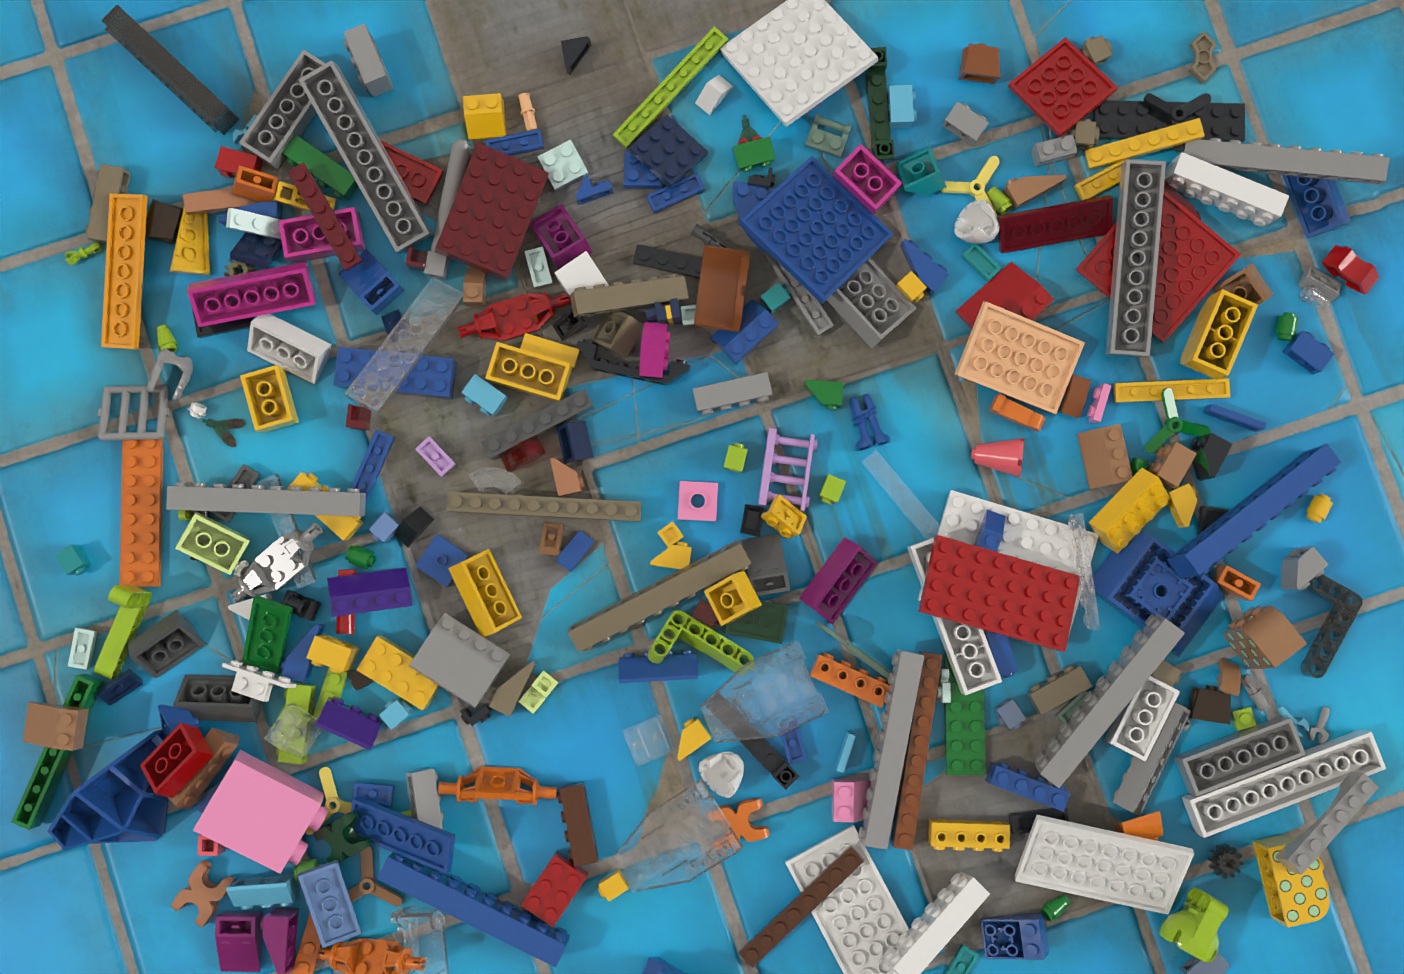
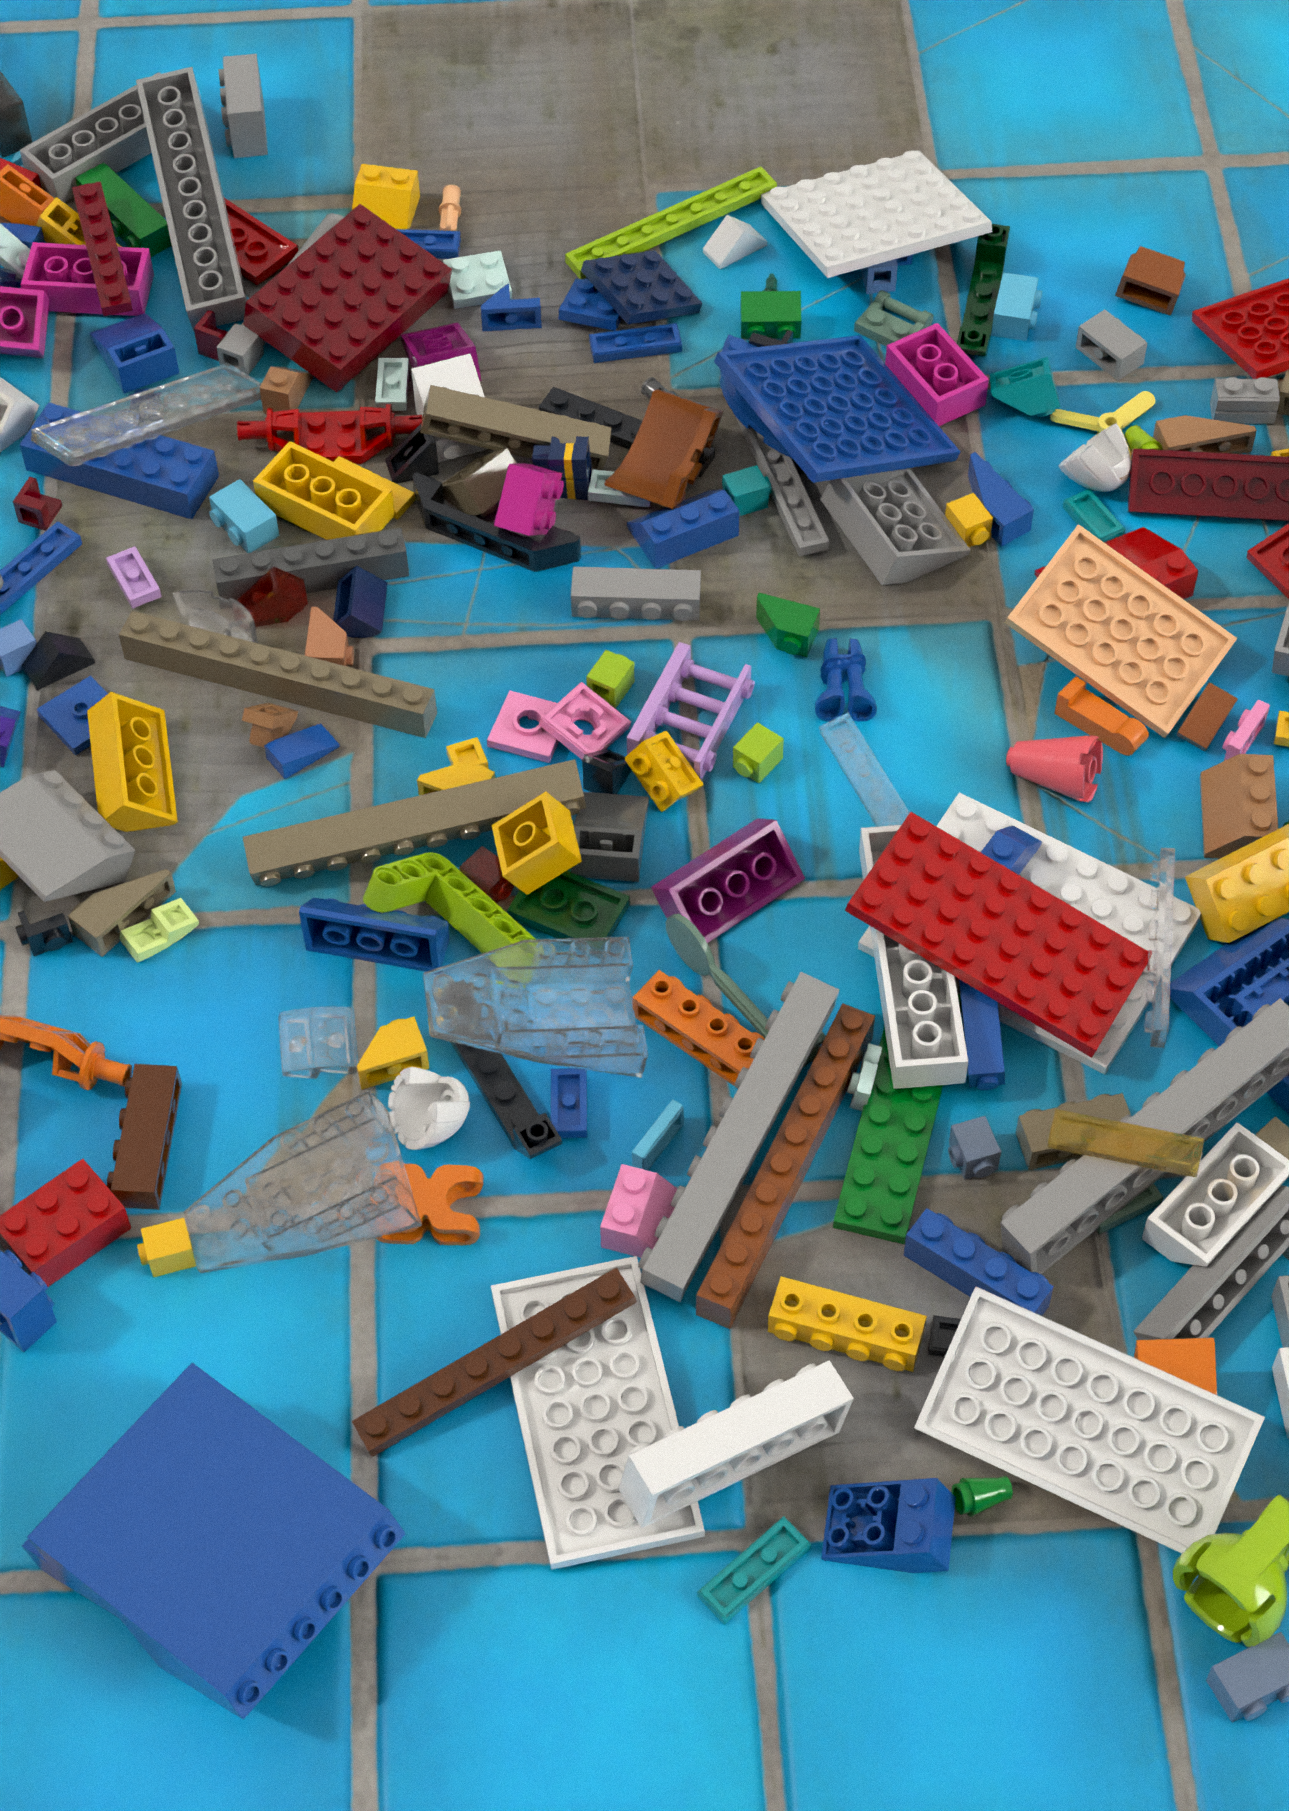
camera: 20 degrees right, 30 degrees down
(574, 51) = (545, 157): black slope -> none
(741, 488) = (588, 706): none -> bright pink piece
(1098, 720) = (1126, 1143): none -> clear yellow tile

